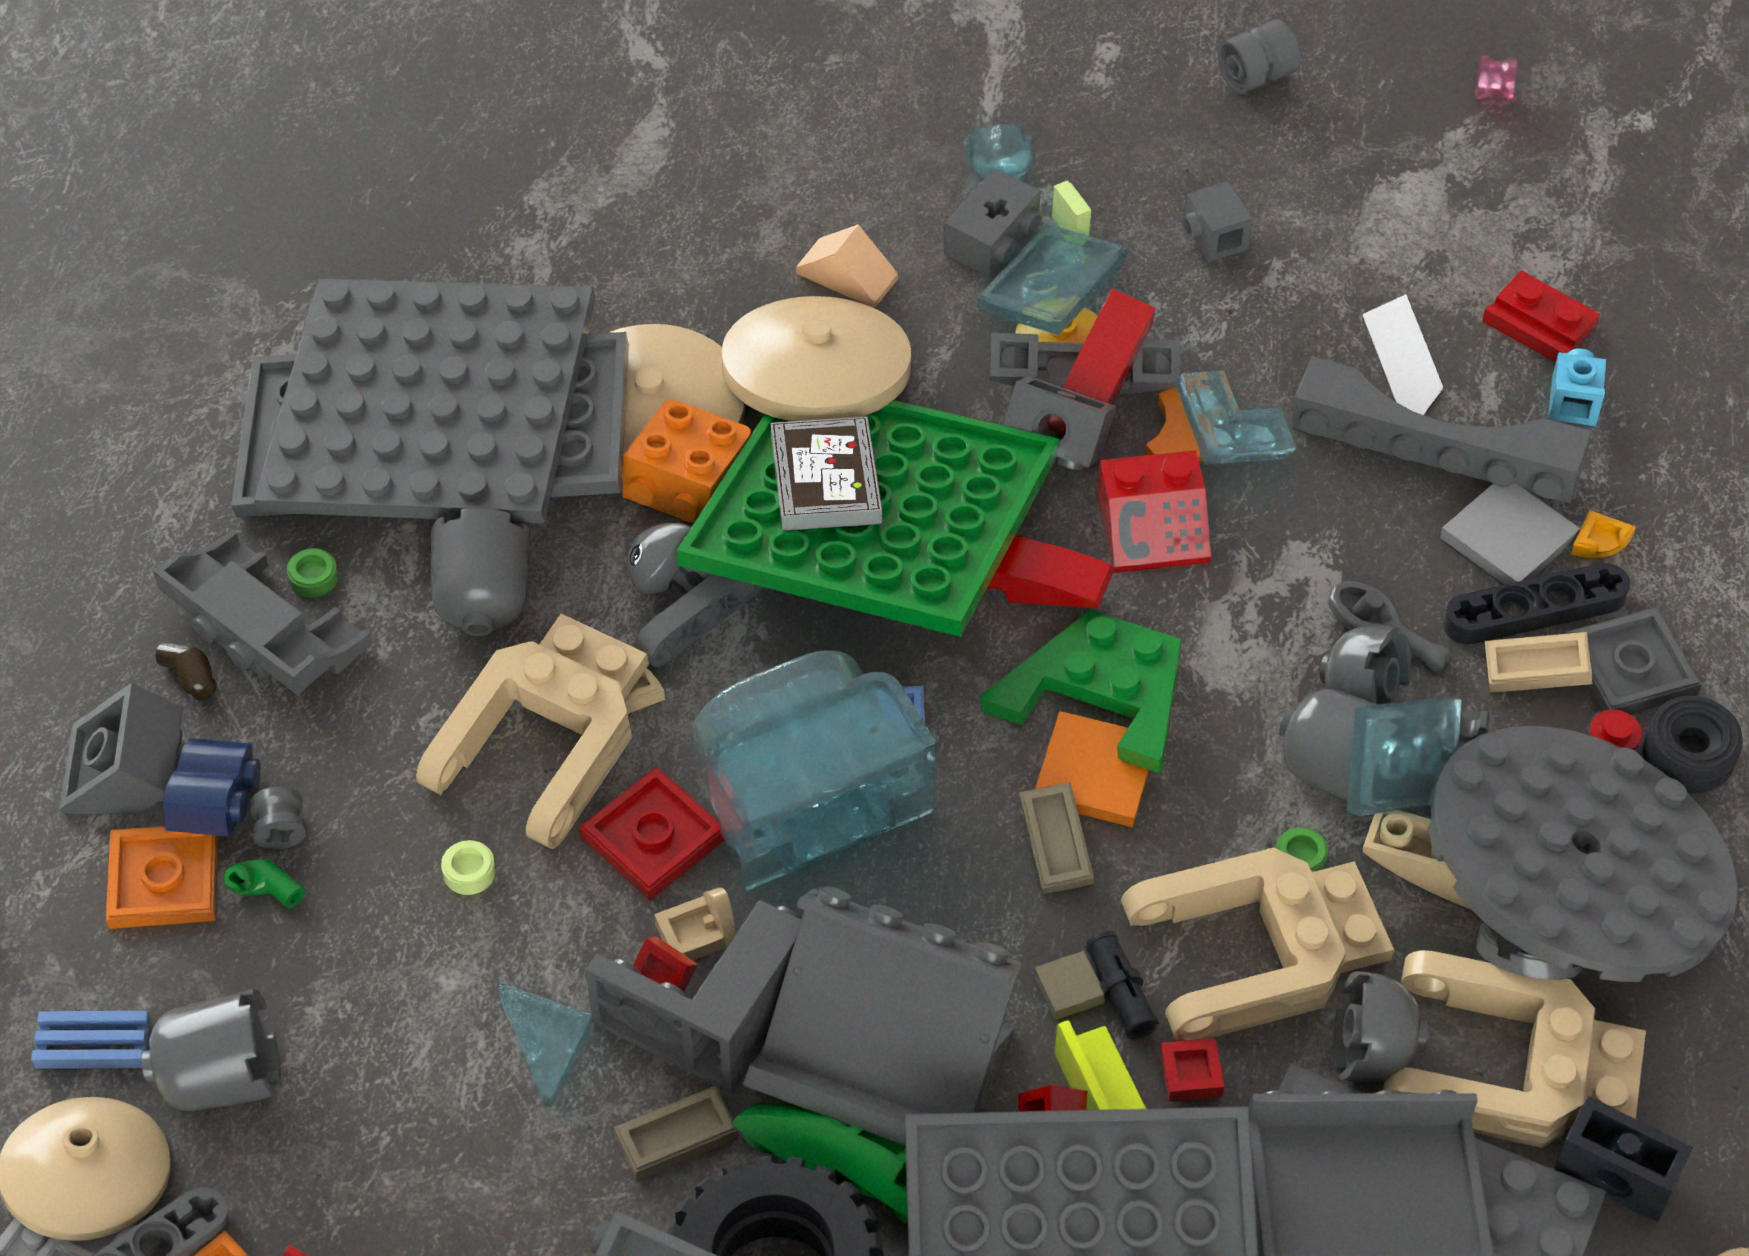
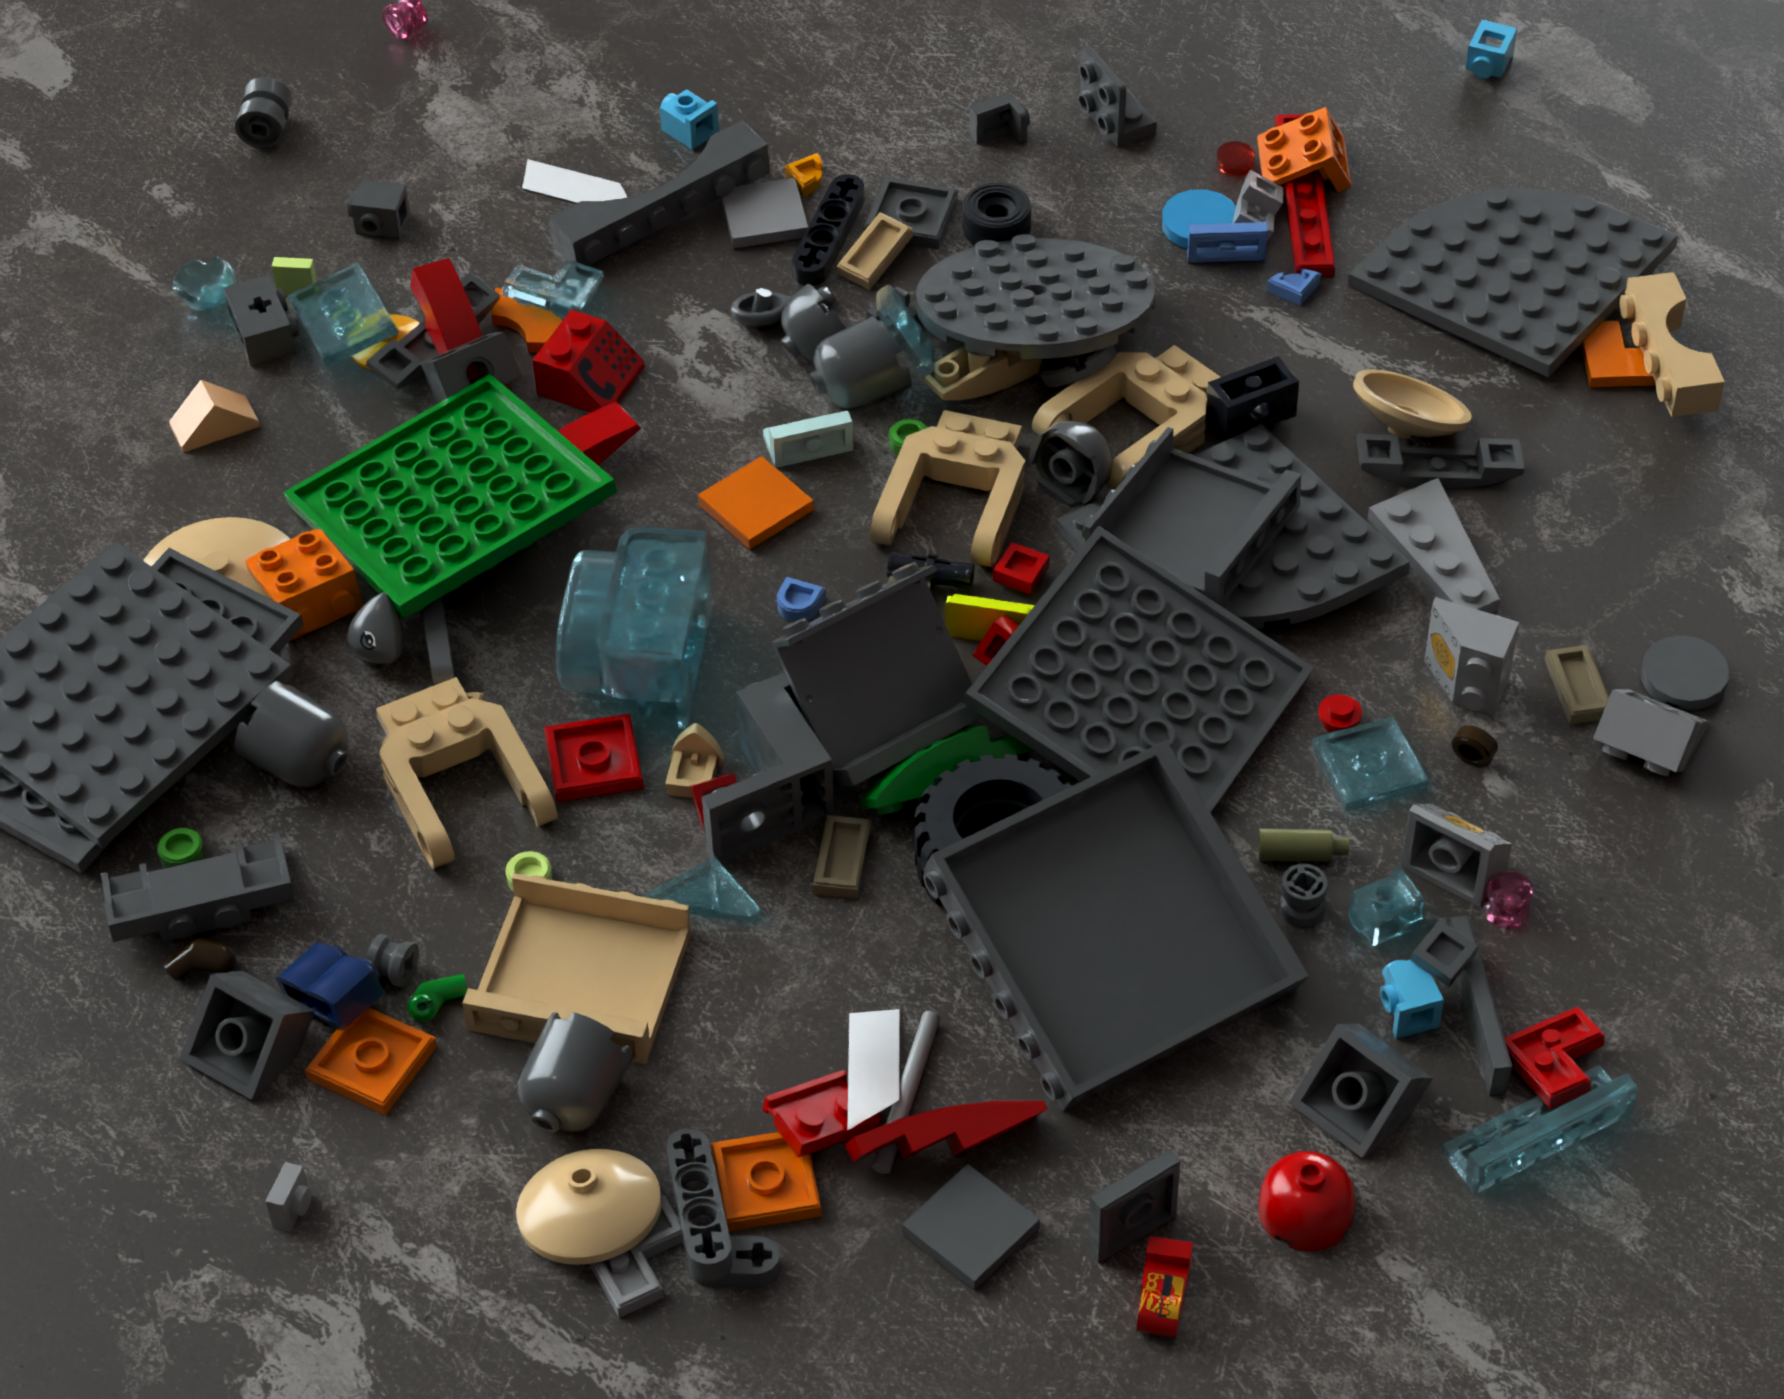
camera: 55 degrees left, 5 degrees down
(90, 1030) = (468, 1148): medium blue tile -> none
(372, 988) = (583, 955): none -> tan panel
(816, 359) = (285, 469): tan dish -> none
(825, 473) = (407, 499): tile -> none
(993, 887) = (799, 599): none -> medium blue tile
(1056, 838) = (793, 546): dark tan tile -> none
(1106, 666) = (692, 450): green wing -> none
(1222, 761) = (809, 438): none -> light aqua panel
(1540, 316) = (613, 106): red plate -> none
(1617, 728) = (953, 243): red plate -> none

